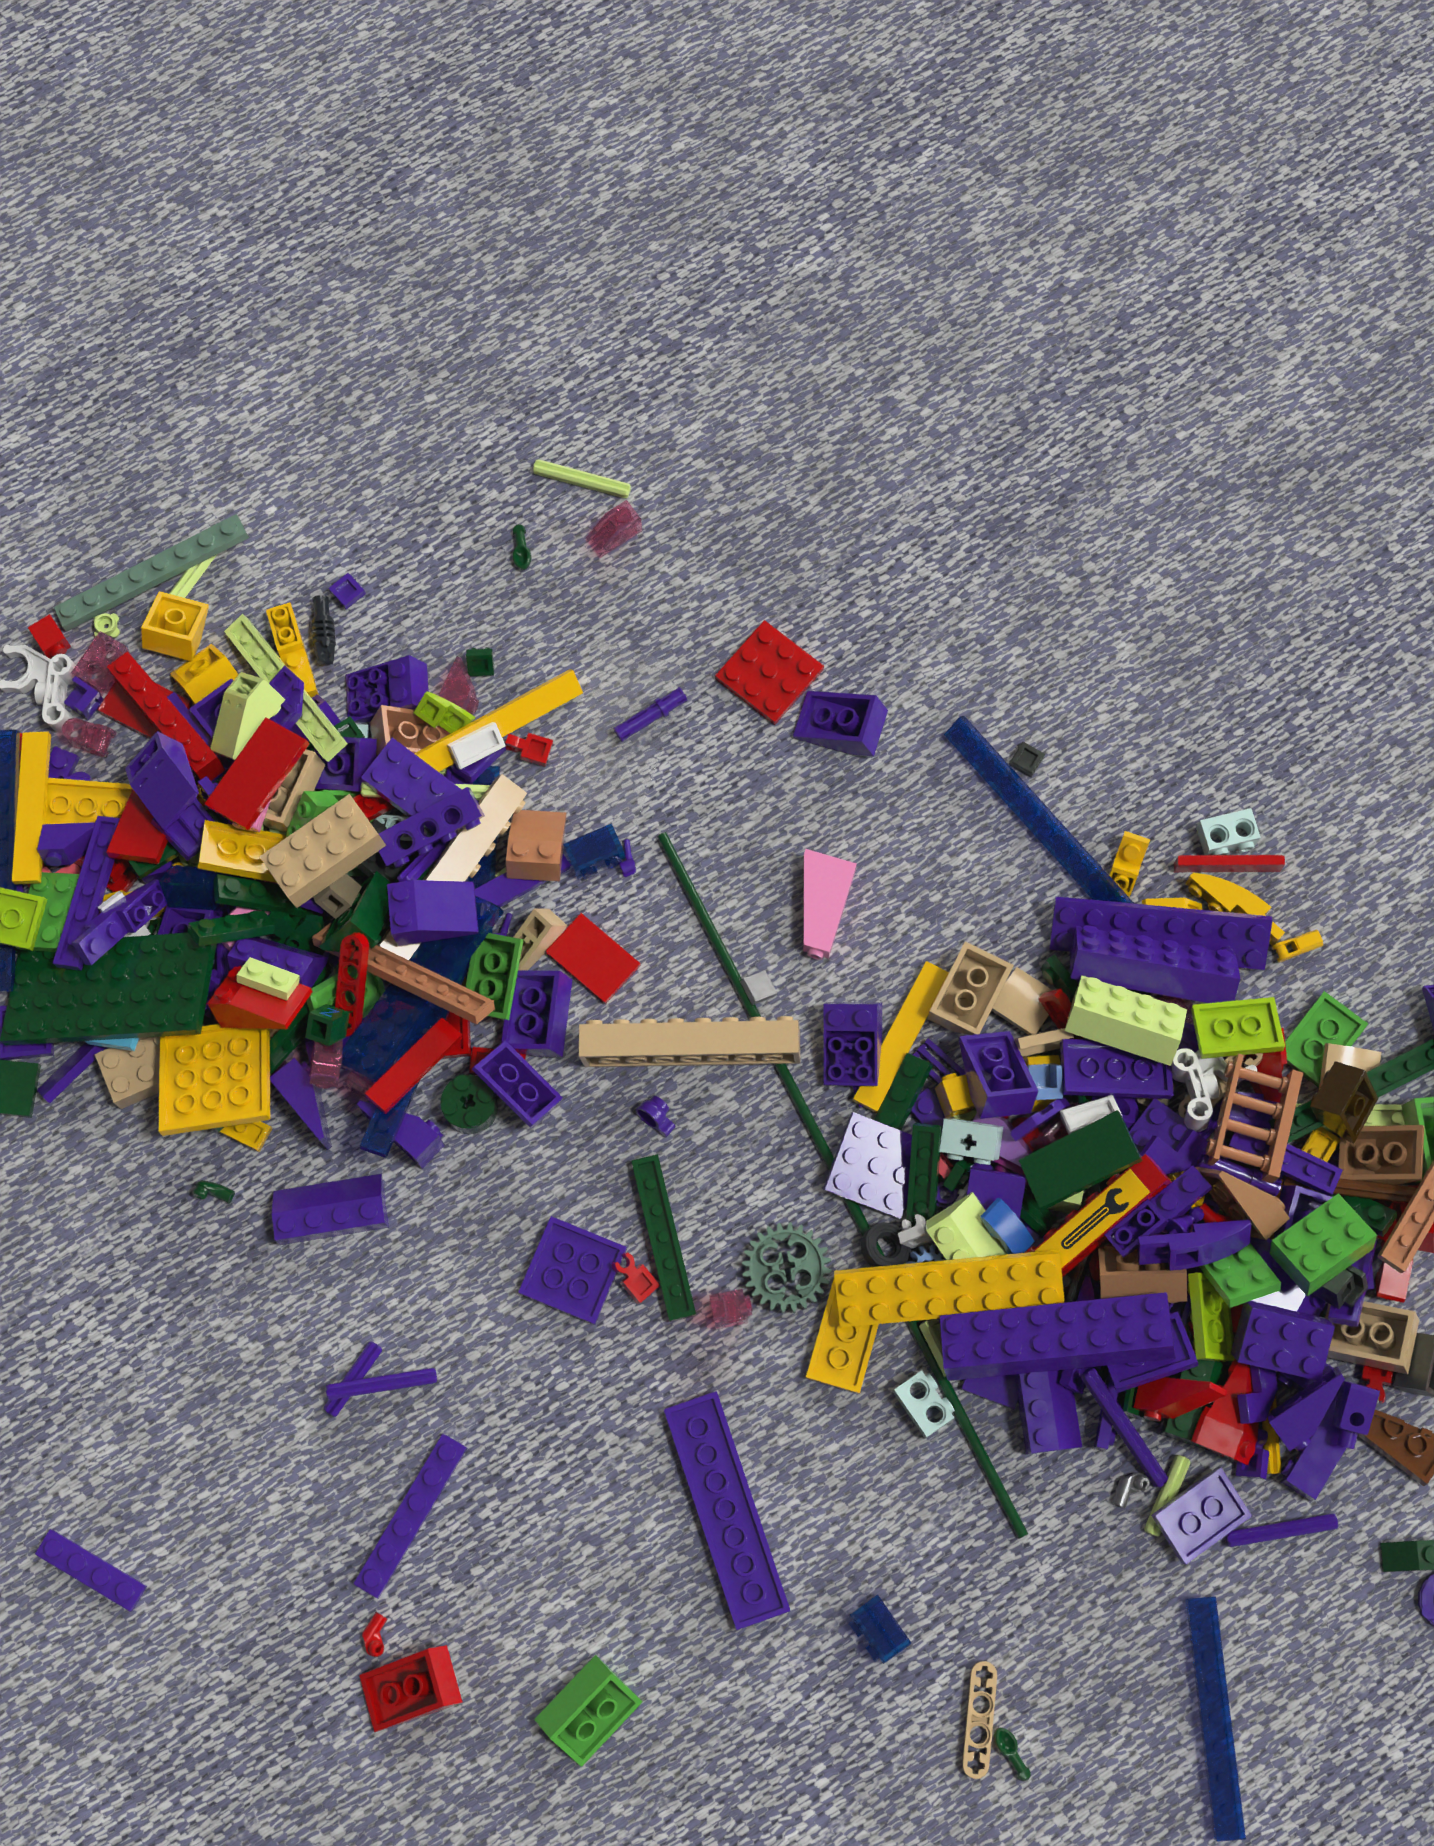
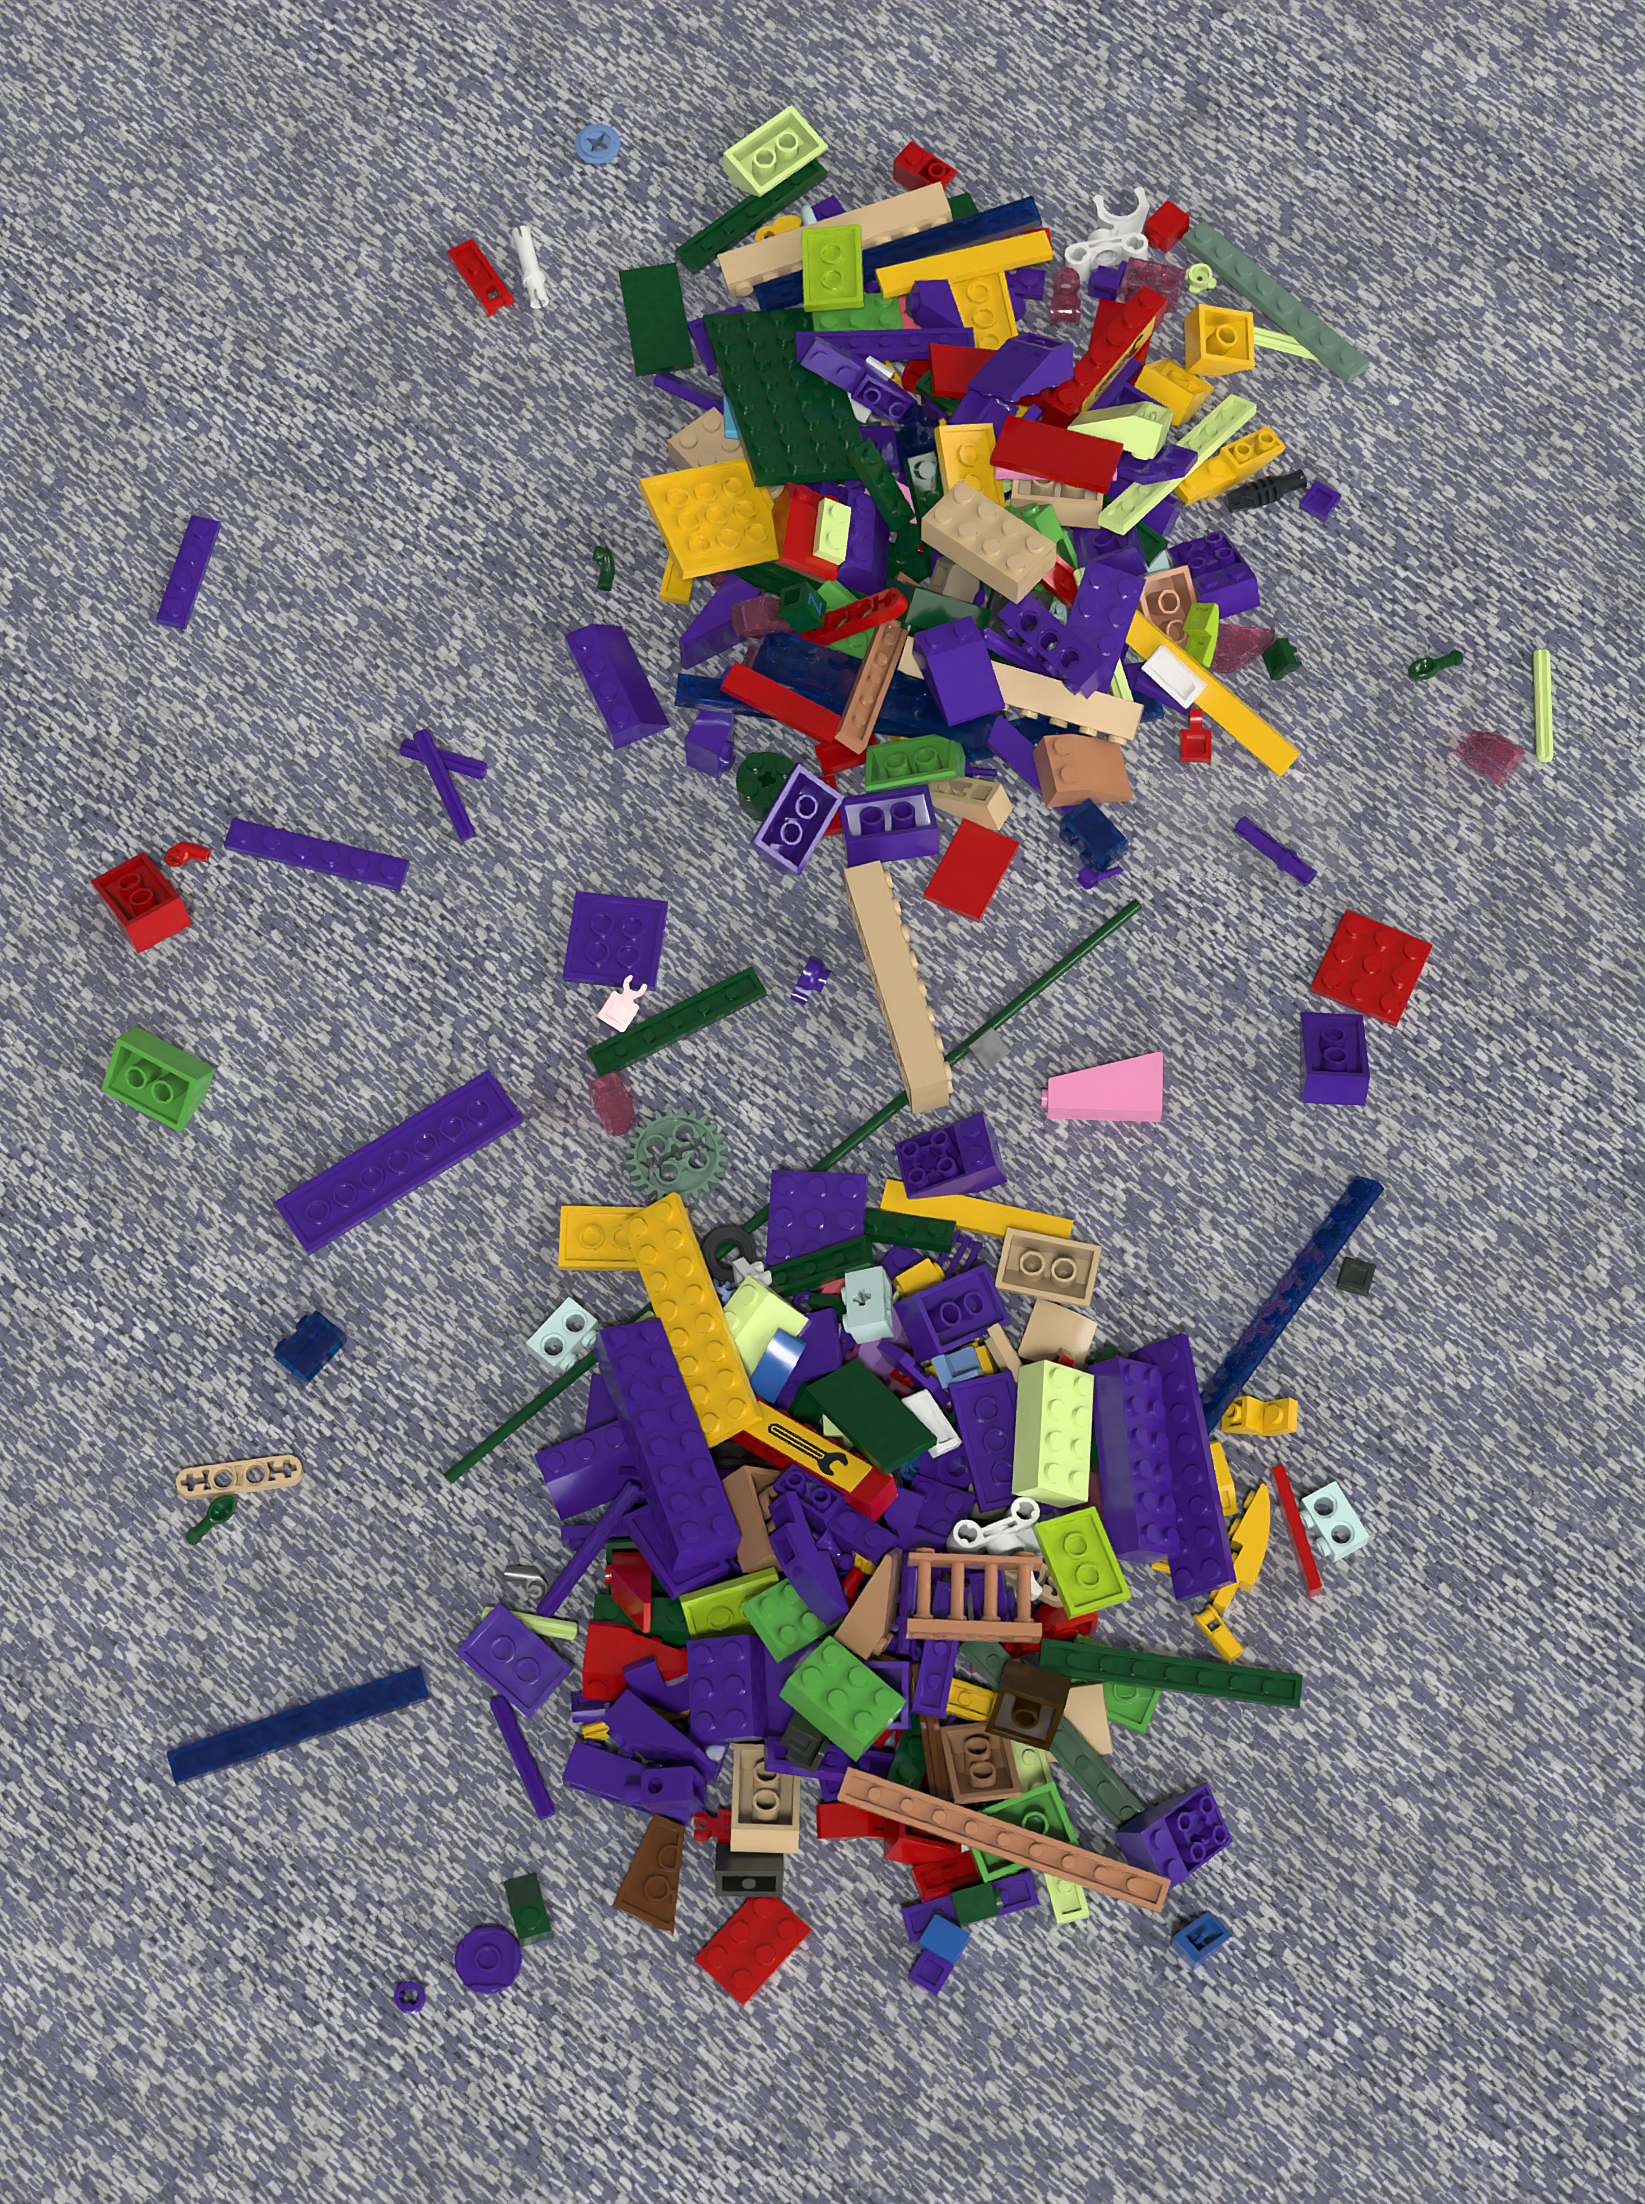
camera: 75 degrees right, 5 degrees down
(1330, 988) = (1171, 1674): none -> dark green plate

